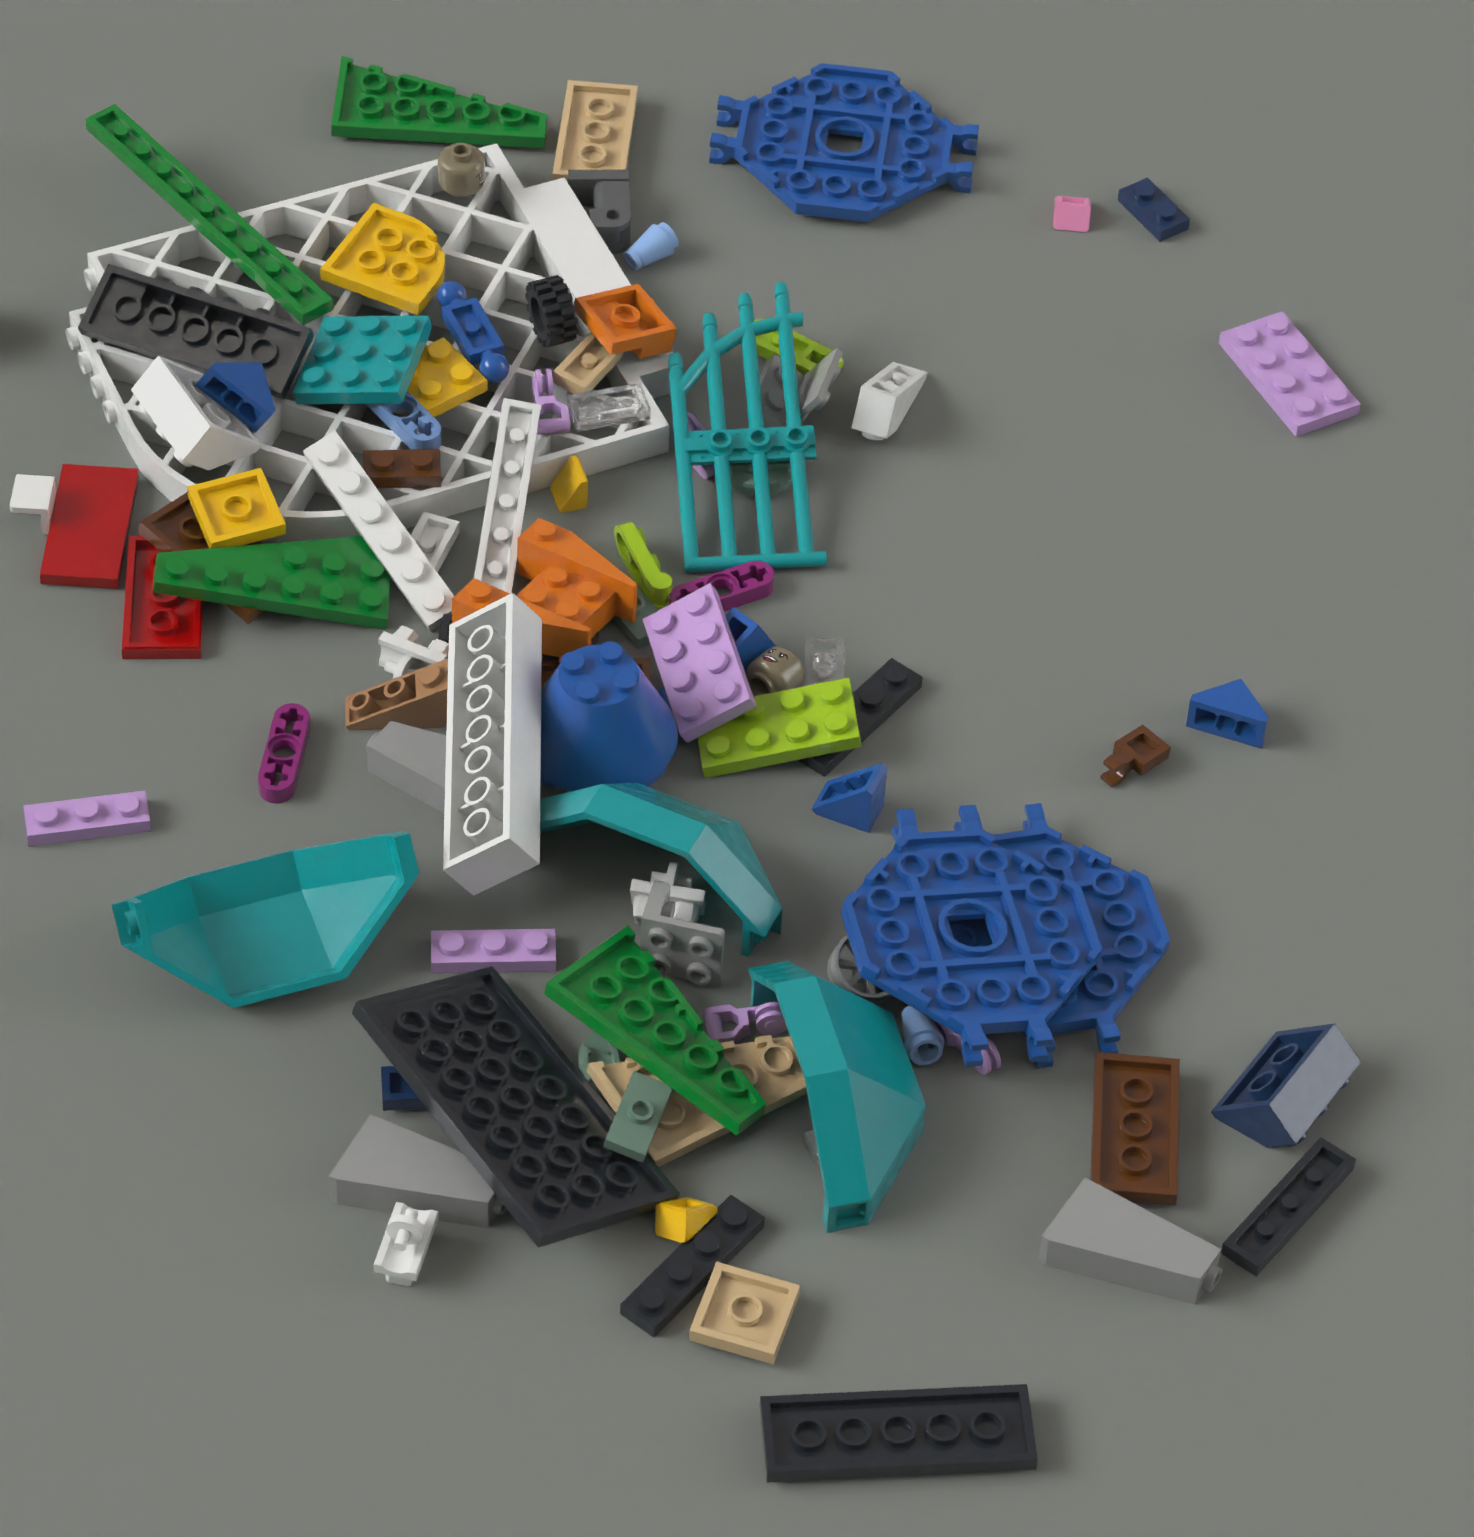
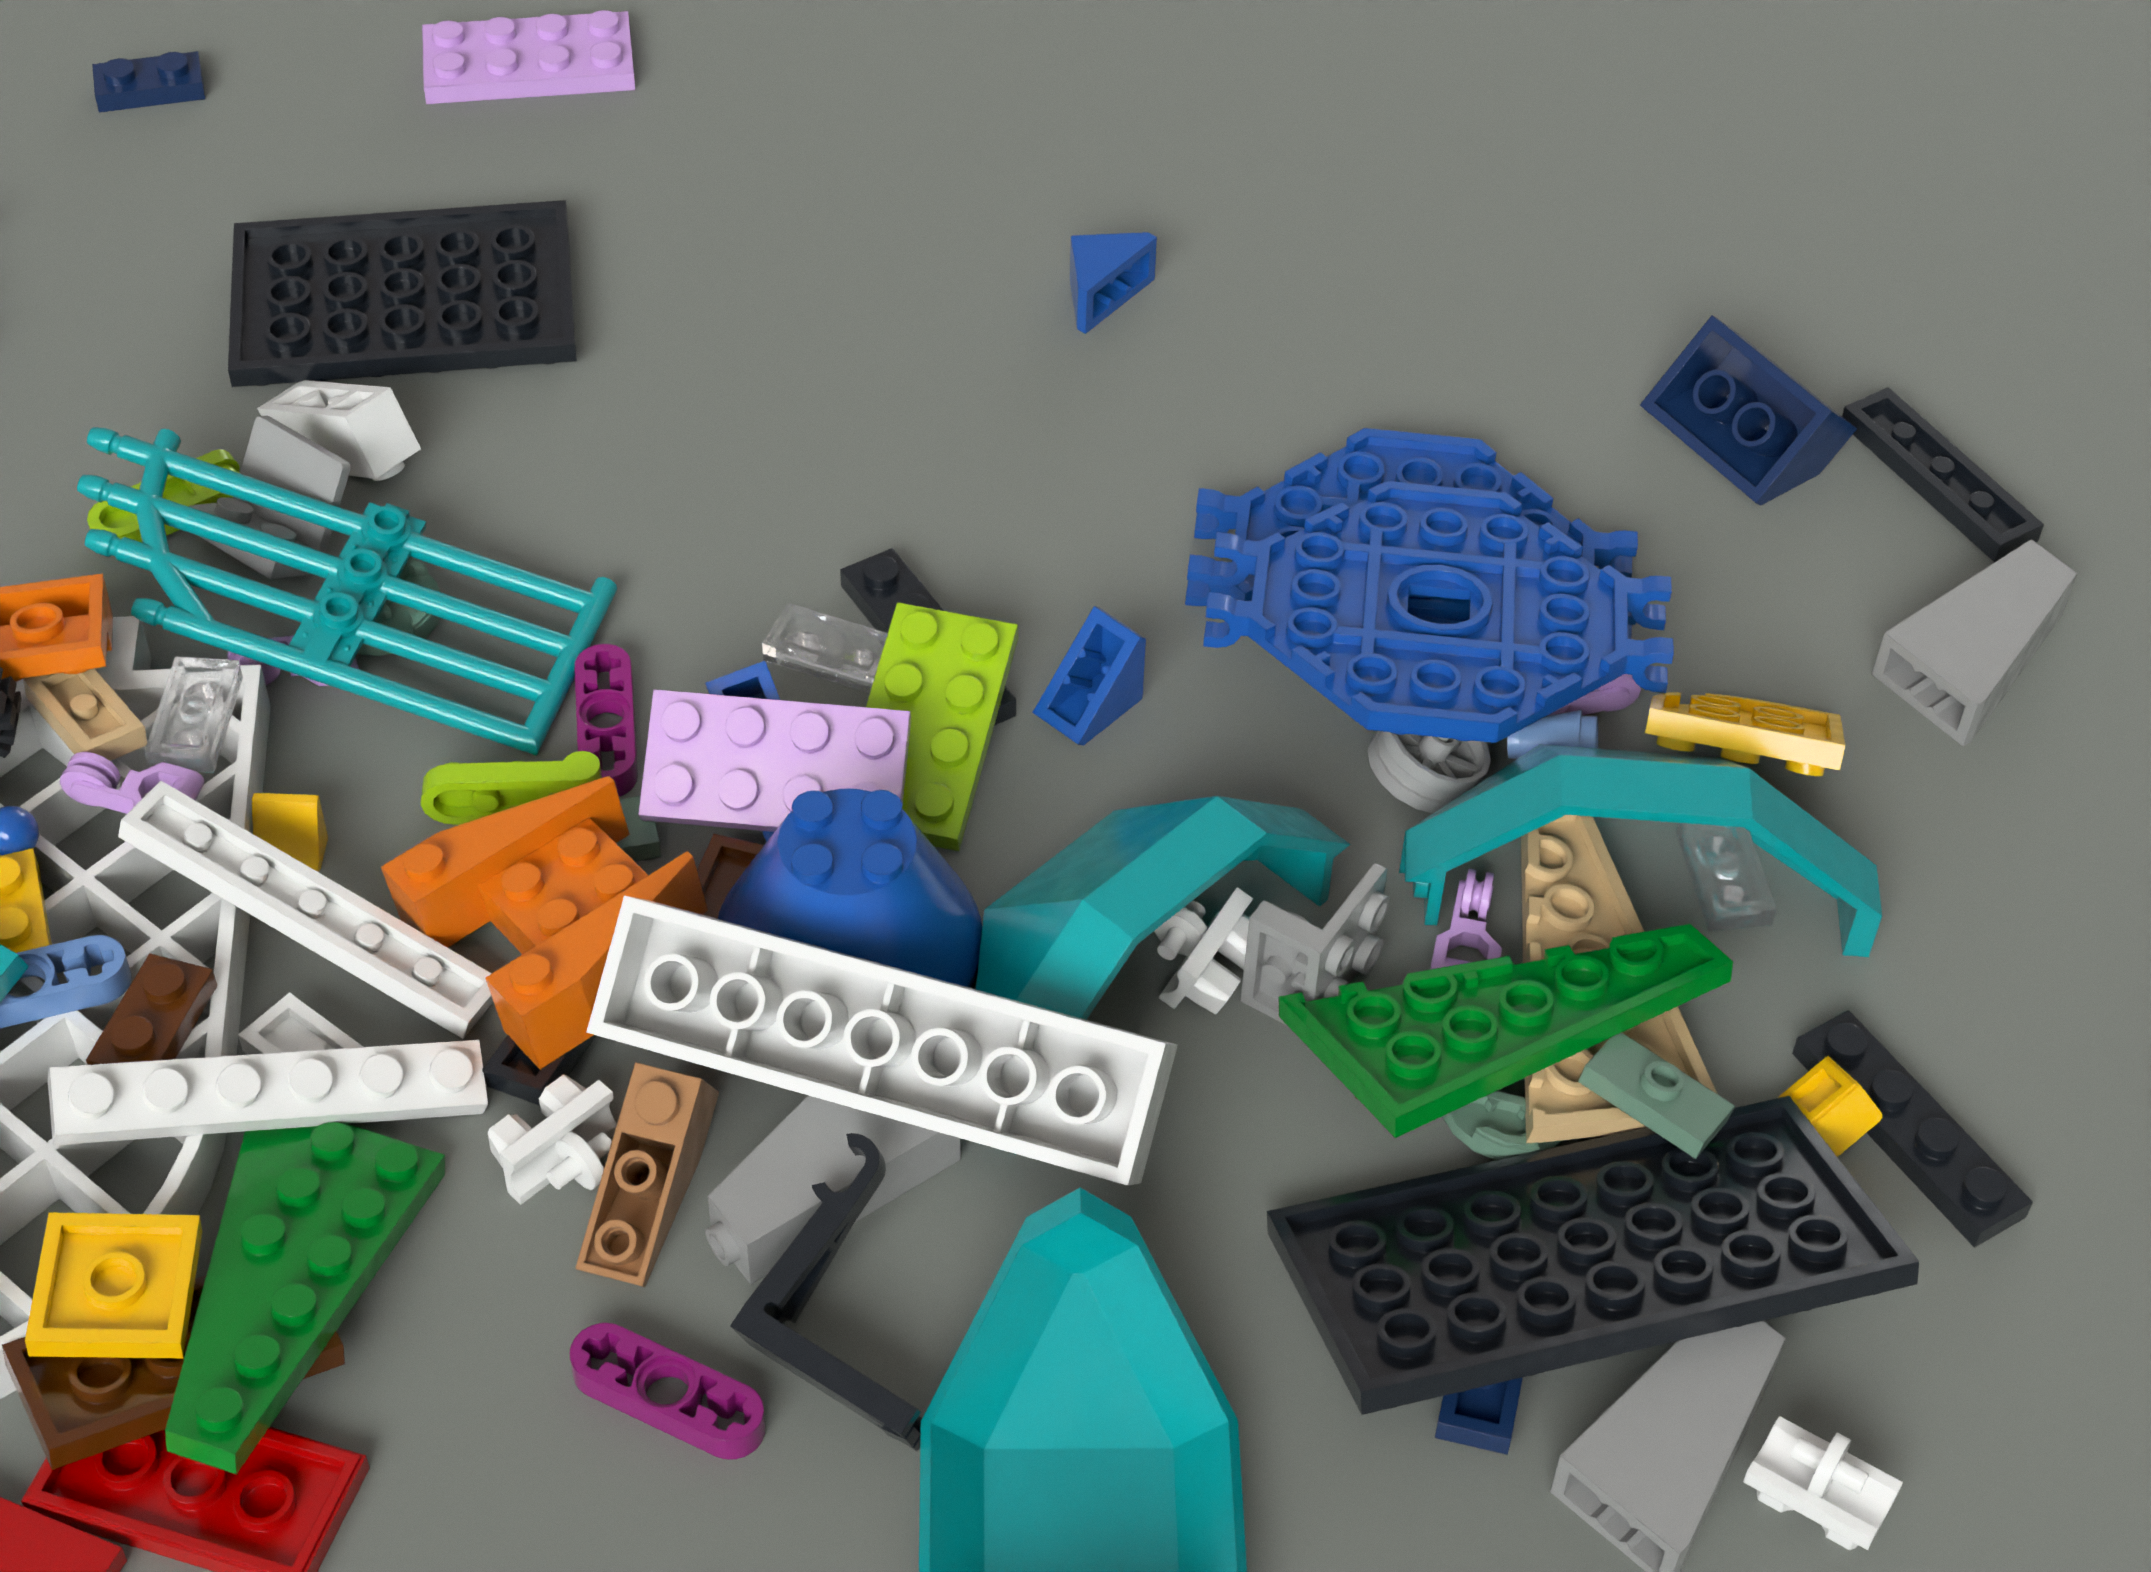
camera: 70 degrees left, 0 degrees up
(336, 772) = (792, 1283): none -> black hinge
(503, 949) = (1217, 1209): lavender plate -> none
(744, 1312) = (2022, 1084): tan plate -> none
(775, 671) = (821, 680): dark tan head -> none
(954, 1115) = (1748, 729): none -> yellow plate
(1023, 388) = (401, 293): none -> black plate
(1072, 213) = (97, 154): bright pink slope -> none
(1136, 751) = (1132, 379): reddish brown plate -> none
(1136, 1127) = (1780, 575): reddish brown plate -> none

